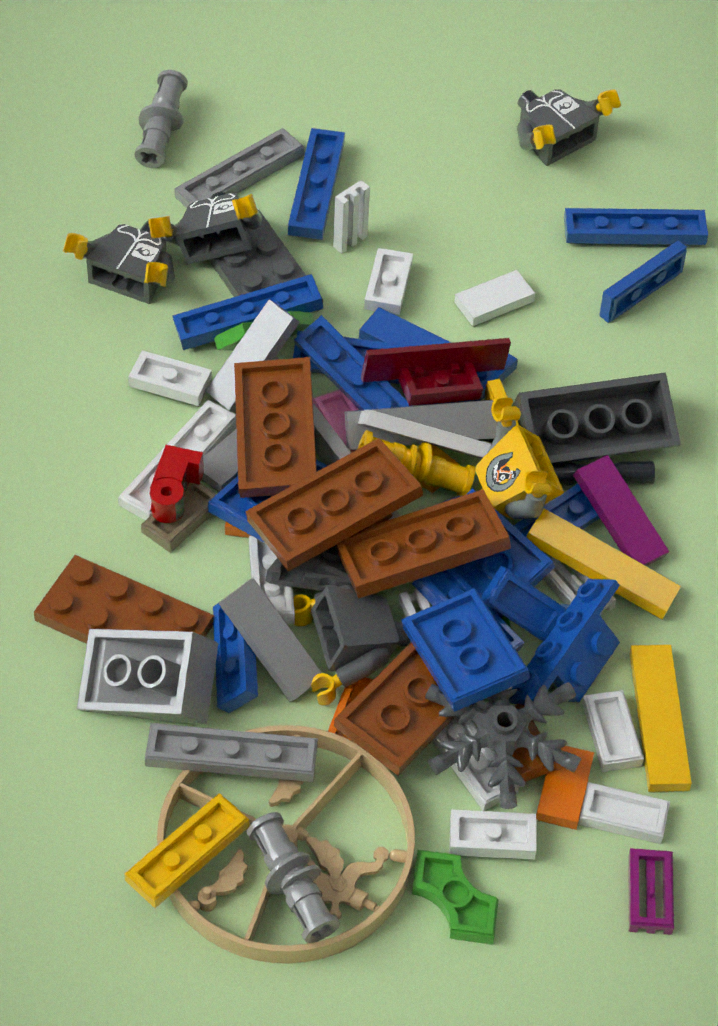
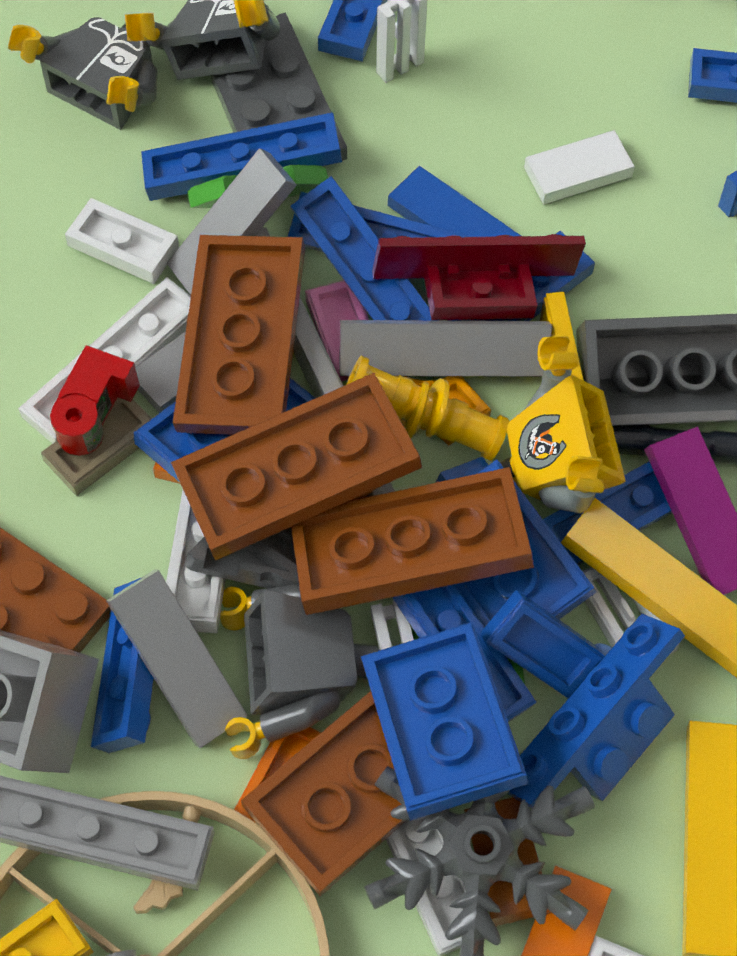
camera: 10 degrees right, 10 degrees up
(388, 281) = (439, 129): white plate -> none
(424, 433) = (445, 366): white tile -> none
(612, 731) = (644, 852): white tile -> none

